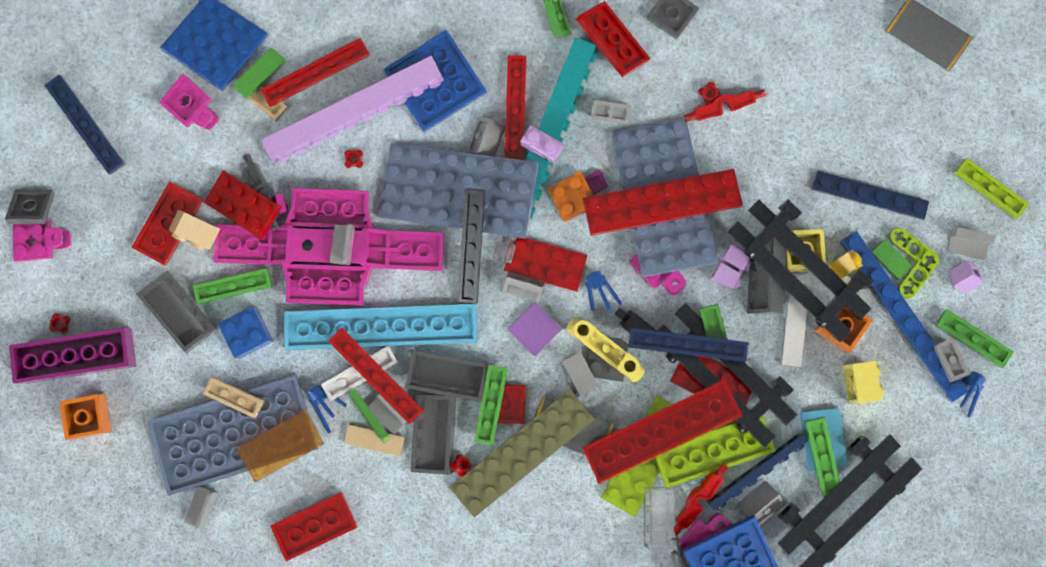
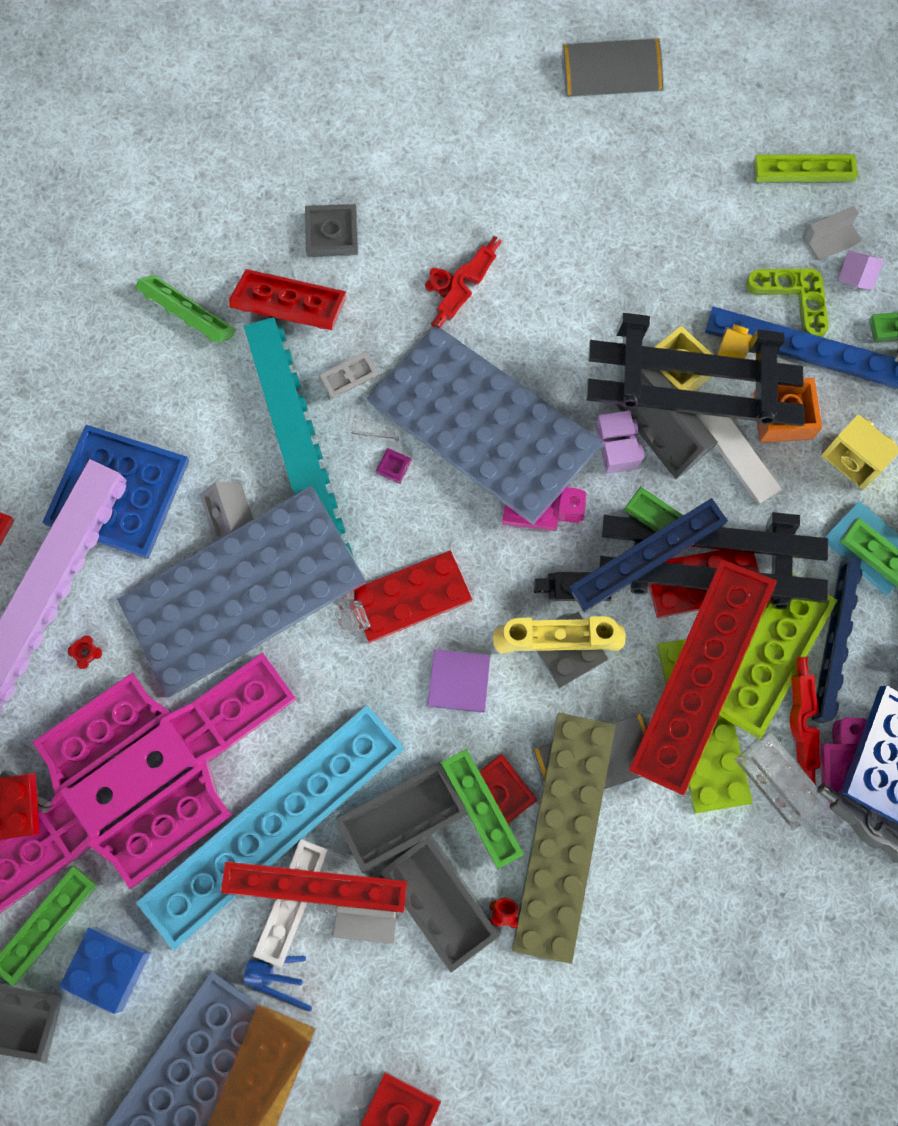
camera: 50 degrees left, 10 degrees down
(233, 397) = (151, 1067): tan tile -> none
(278, 198) = (25, 767): dark pink plate -> none
(342, 244) = (148, 759): light grey panel -> none
(368, 439) = (374, 971): tan tile -> none
(369, 416) = (345, 945): bright green tile -> none
(471, 245) = (309, 639): plate -> none
(515, 106) = (234, 449): red plate -> none
(523, 286) = (408, 641): light grey hinge -> none
(542, 144) = (300, 462): lavender brick -> none
(569, 195) = (381, 499): orange plate -> none
(578, 374) = (552, 690): light grey hinge -> none
(597, 281) = (485, 570): blue plant -> none
(662, 202) = (485, 427): red plate -> none
(761, 502) = (870, 667): light grey panel -> none
(870, 195) = (694, 262): dark blue plate -> none
(891, 259) = (773, 309): bright green tile -> none

